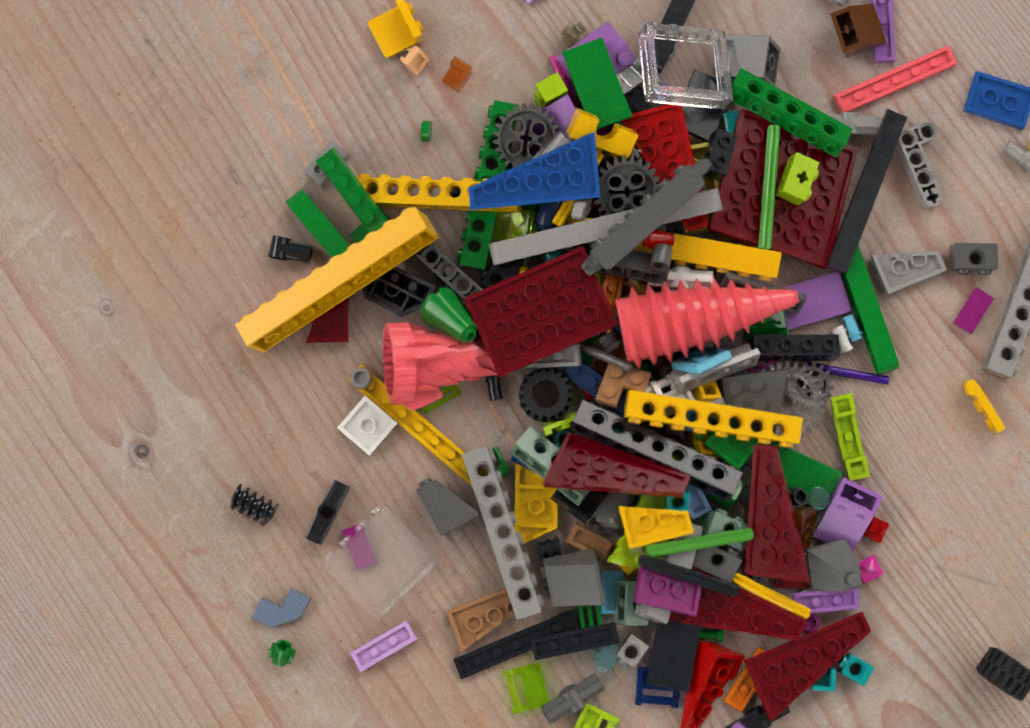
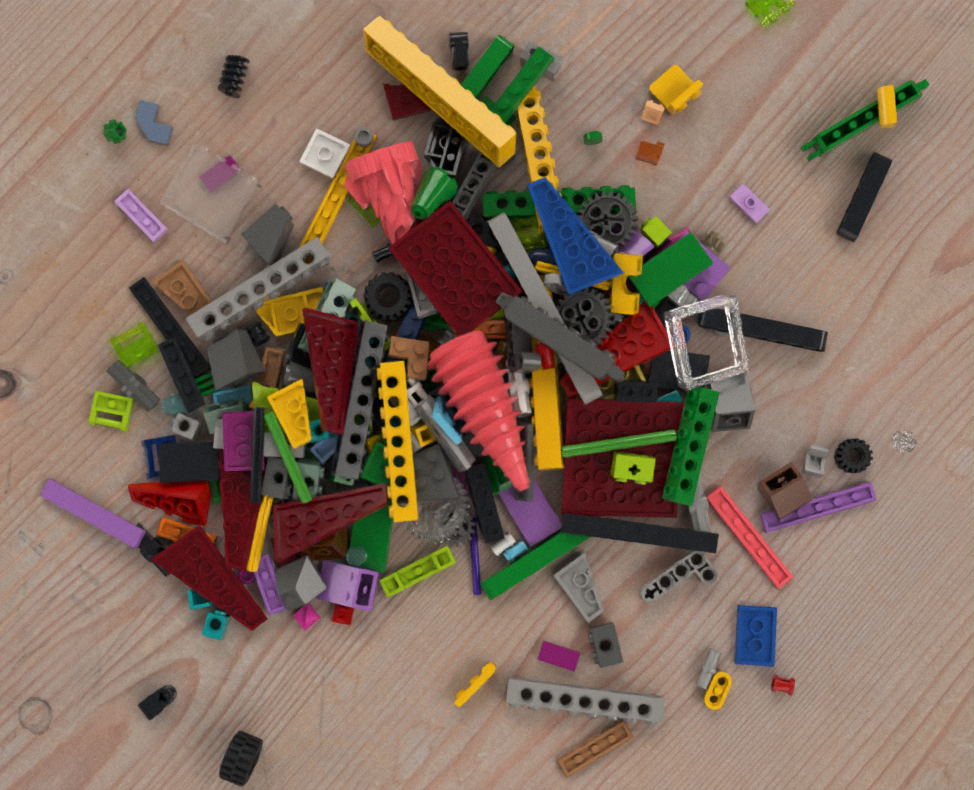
camera: 80 degrees right, 0 degrees up
(320, 525) = (231, 137): black piece -> none
(504, 468) = (317, 279): green hand -> none
(606, 357) = (430, 337): dark grey bar -> none
(798, 497) = (351, 540): black plate -> none

